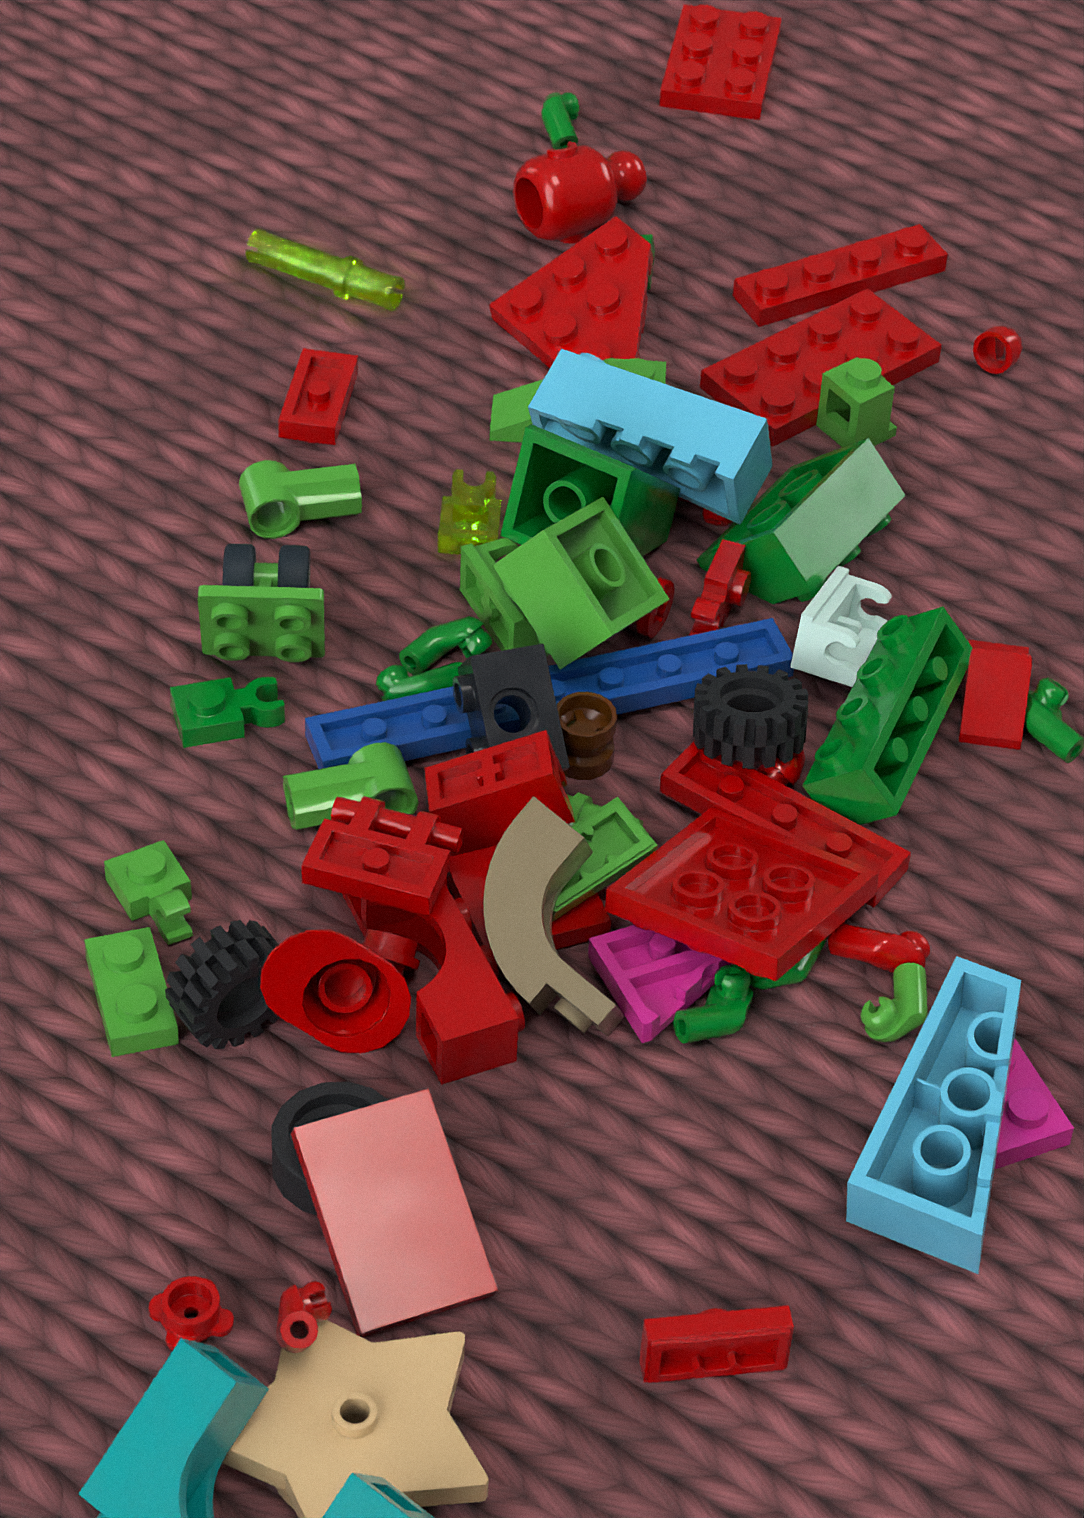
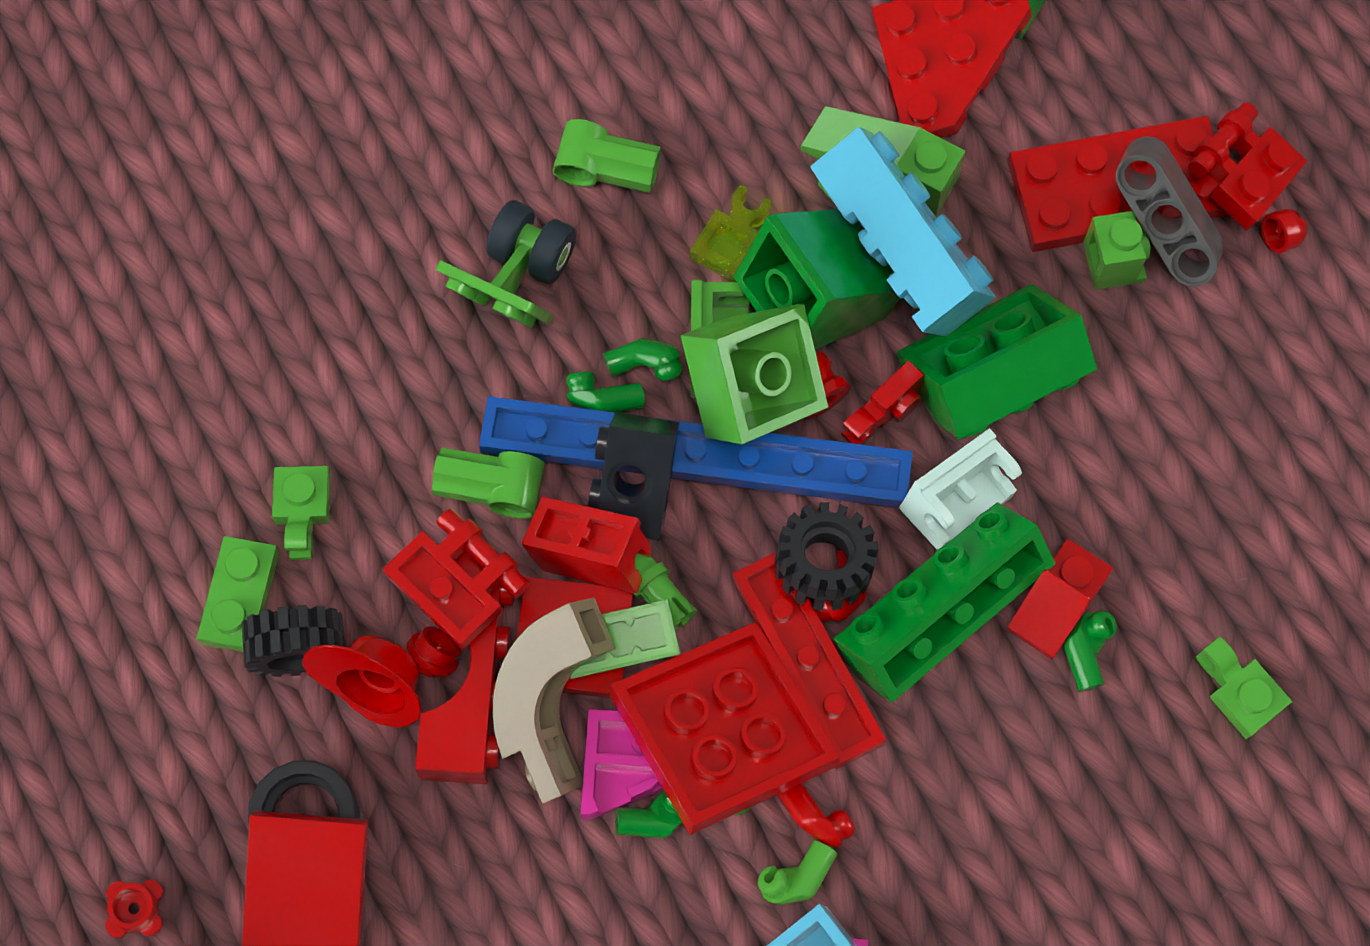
camera: 30 degrees right, 25 degrees up
(217, 711) = (434, 348): green plate -> none
(318, 396) = (677, 55): red plate -> none
(588, 733) = (695, 493): reddish brown wheel -> none
(839, 274) = (1197, 85): red plate -> none
(918, 354) = (1167, 234): none -> dark grey beam
(940, 310) = (1258, 177): none -> red plate

